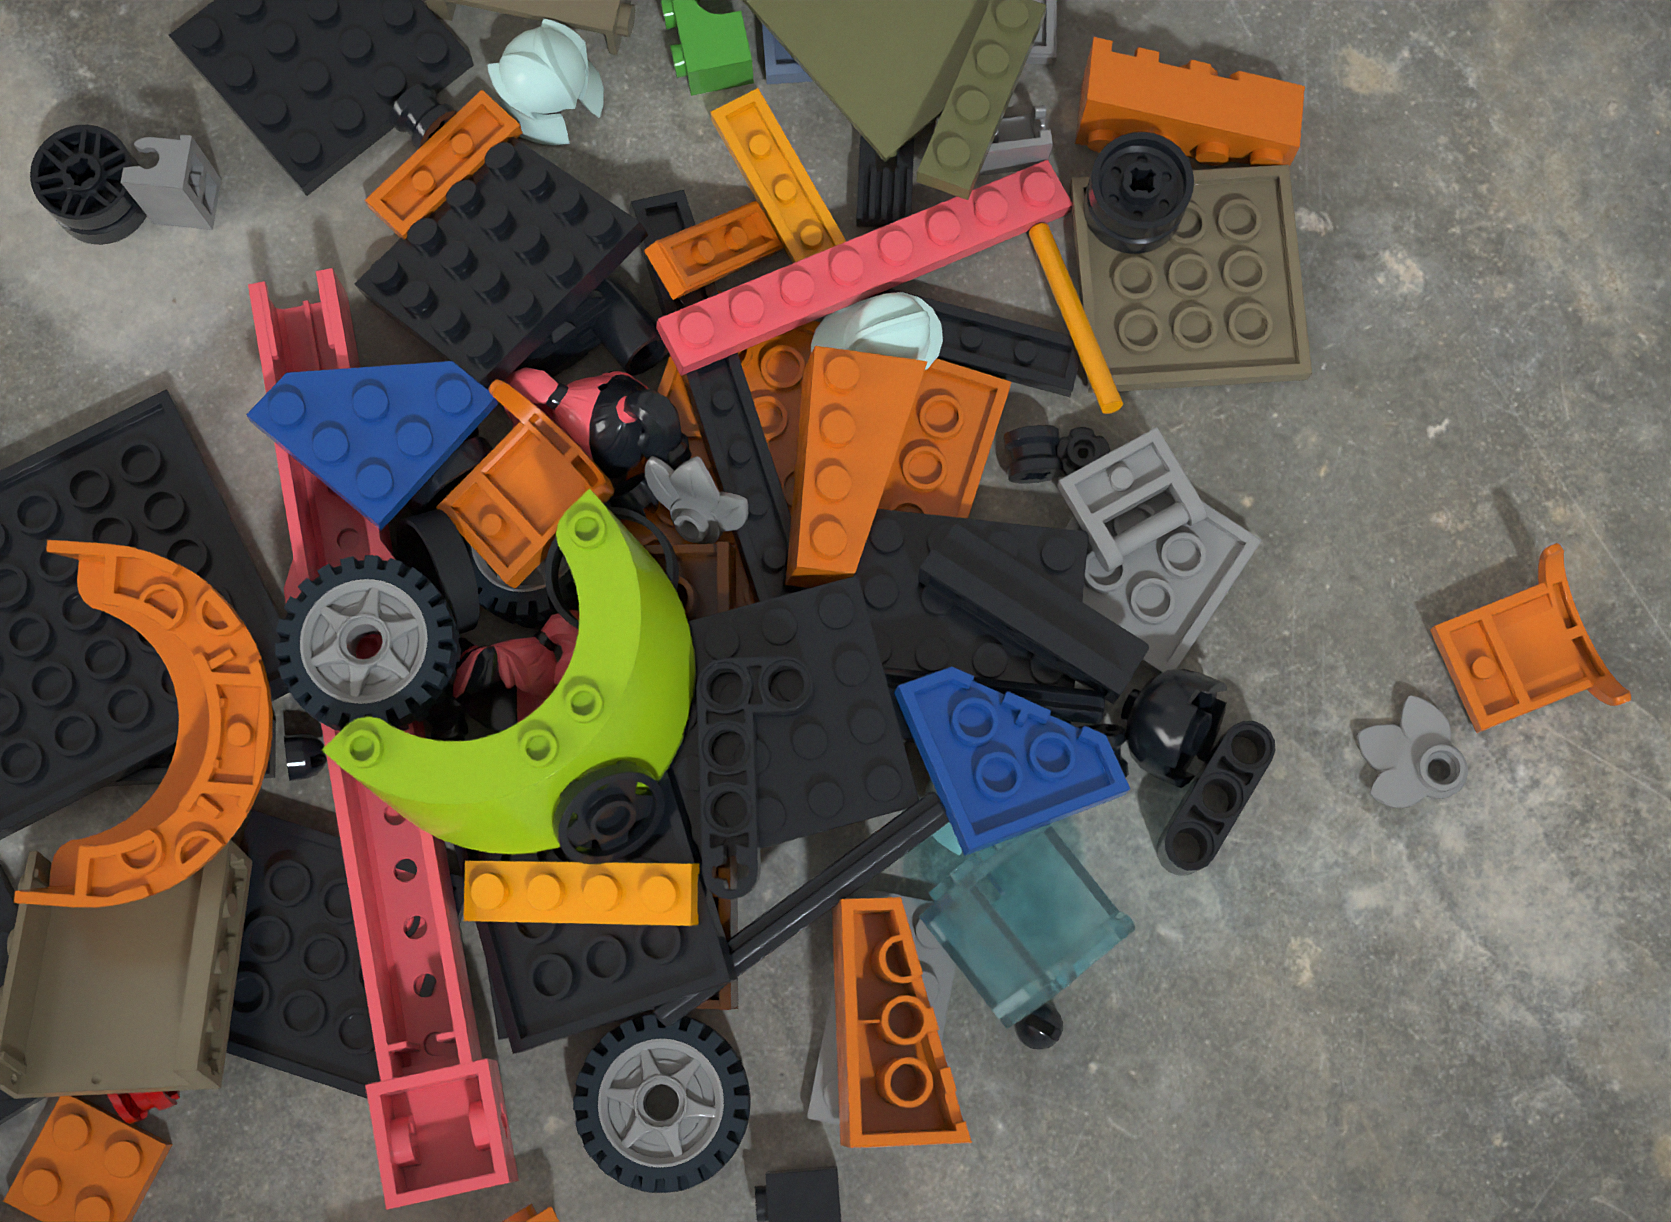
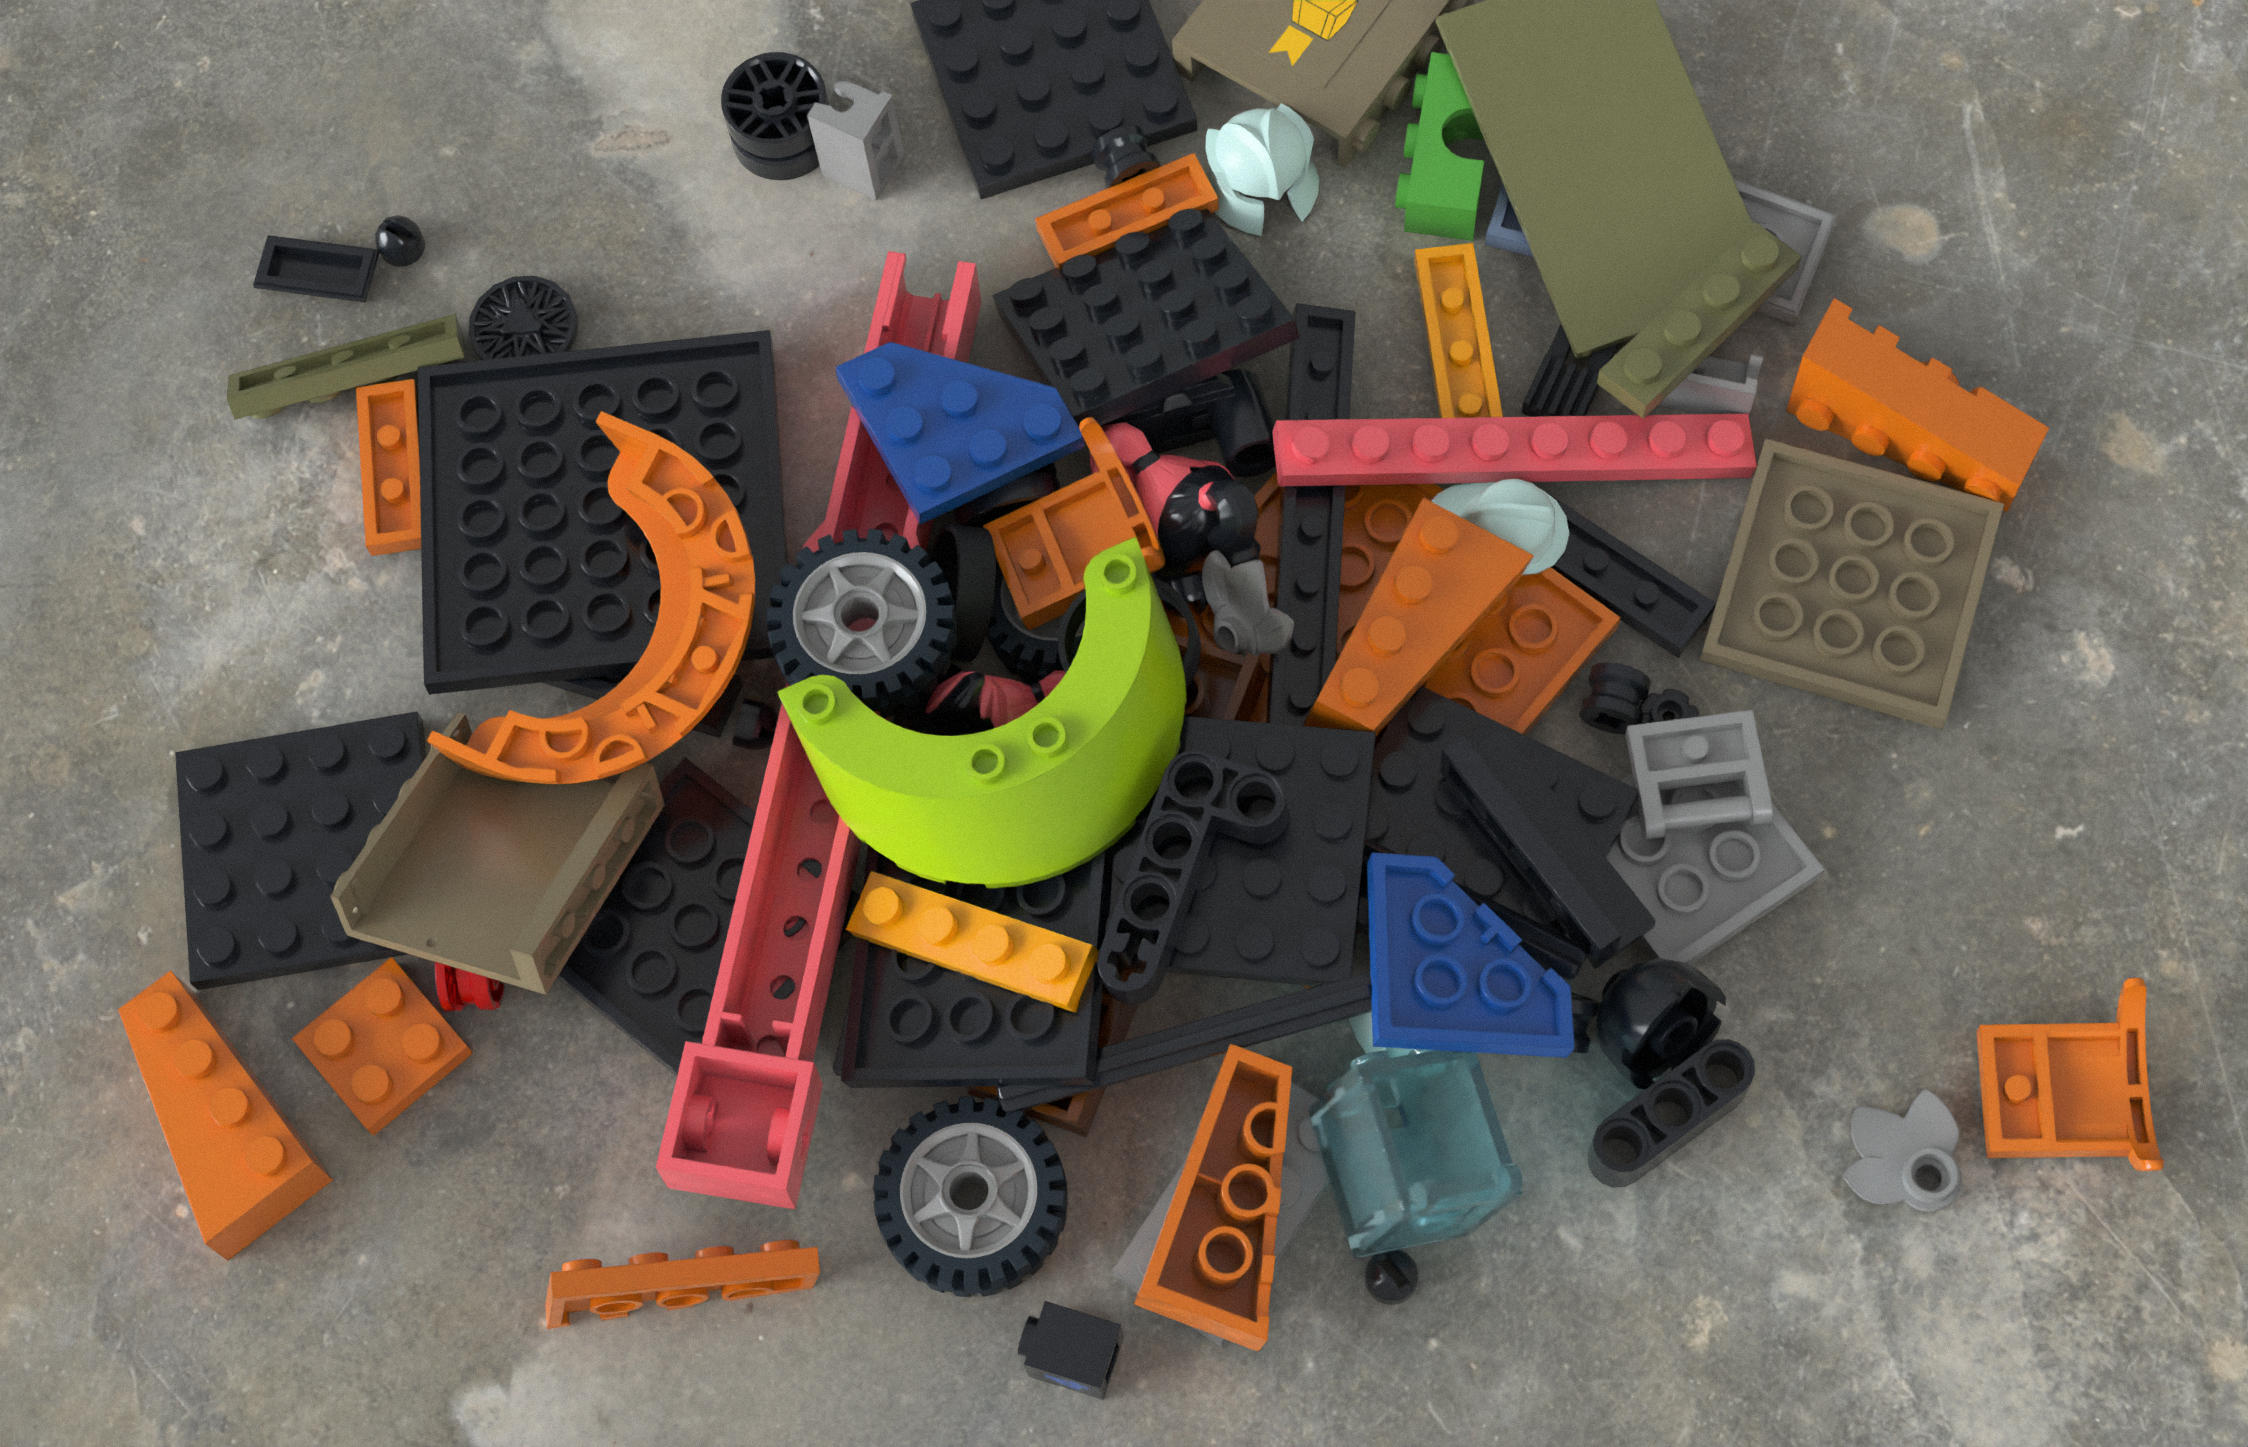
camera: 30 degrees right, 10 degrees down
(605, 810) = (1029, 862): black wheel -> none
(713, 249) = (1362, 377): orange tile -> none
(1075, 319) = (1712, 578): light orange bar -> none
(1138, 192) = (1825, 471): black wheel -> none

